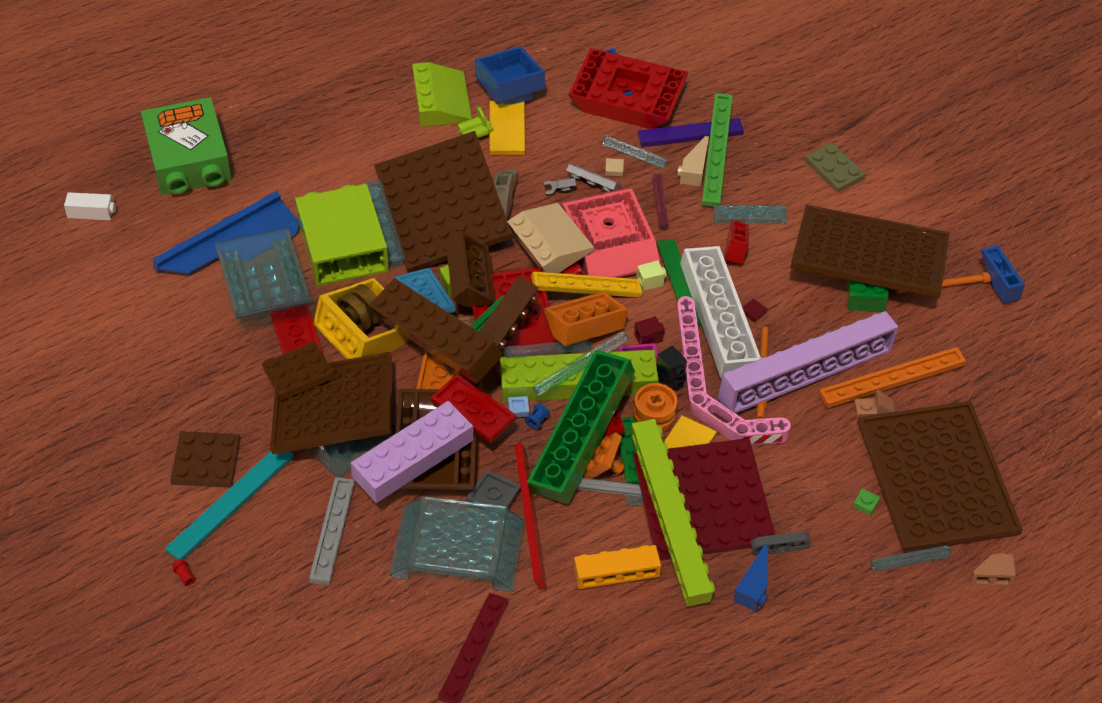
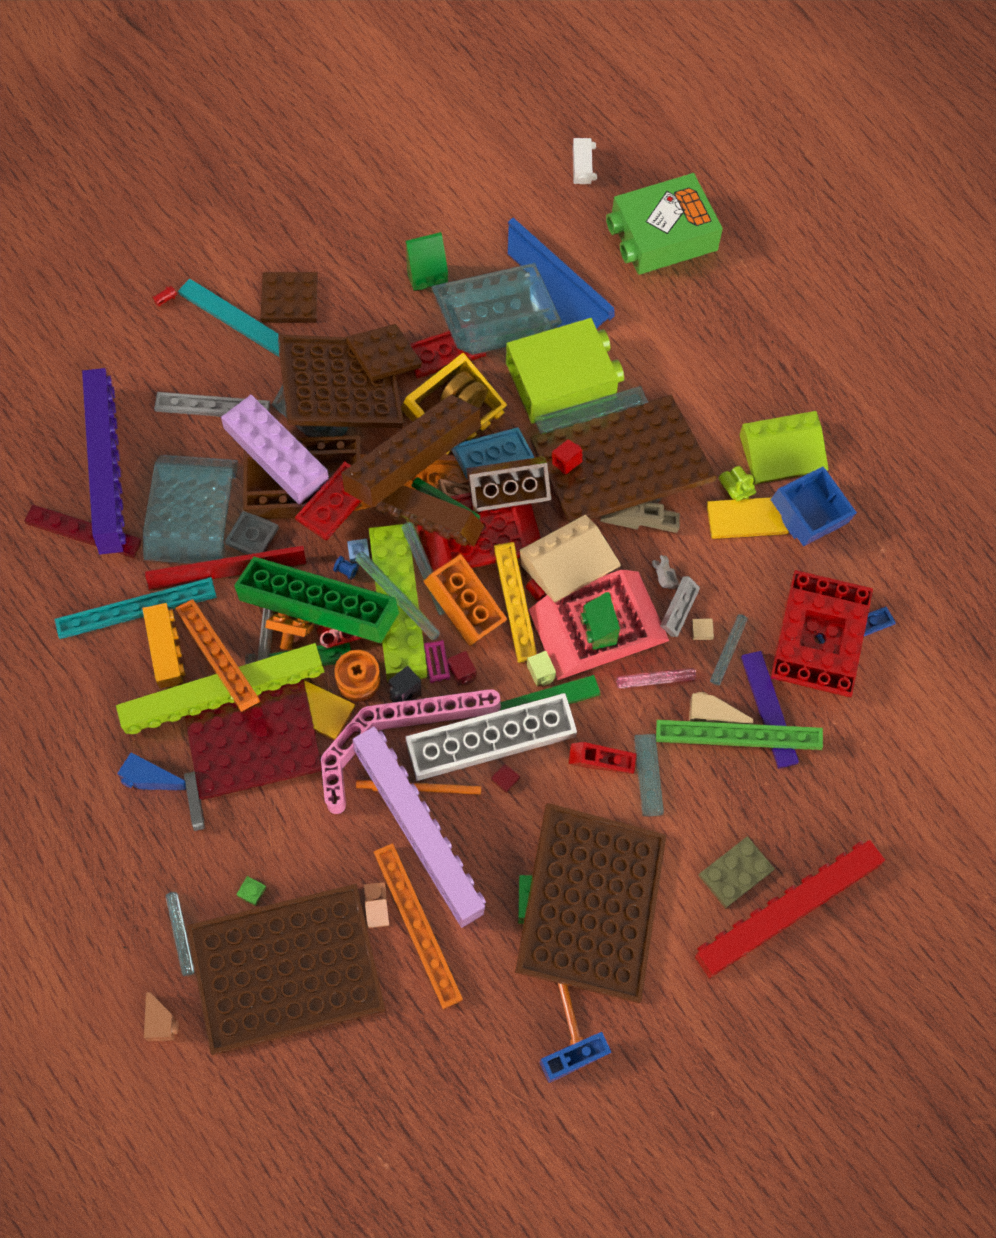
camera: 85 degrees right, 15 degrees up
(199, 329) = (426, 261): none -> green slope
(399, 614) = (103, 461): none -> dark purple brick
(442, 229) = (567, 456): none -> red brick
(569, 600) = (132, 608): none -> teal tile
(621, 210) = (600, 622): none -> green slope
(638, 506) = (217, 655): none -> orange plate
(867, 137) = (788, 909): none -> red brick

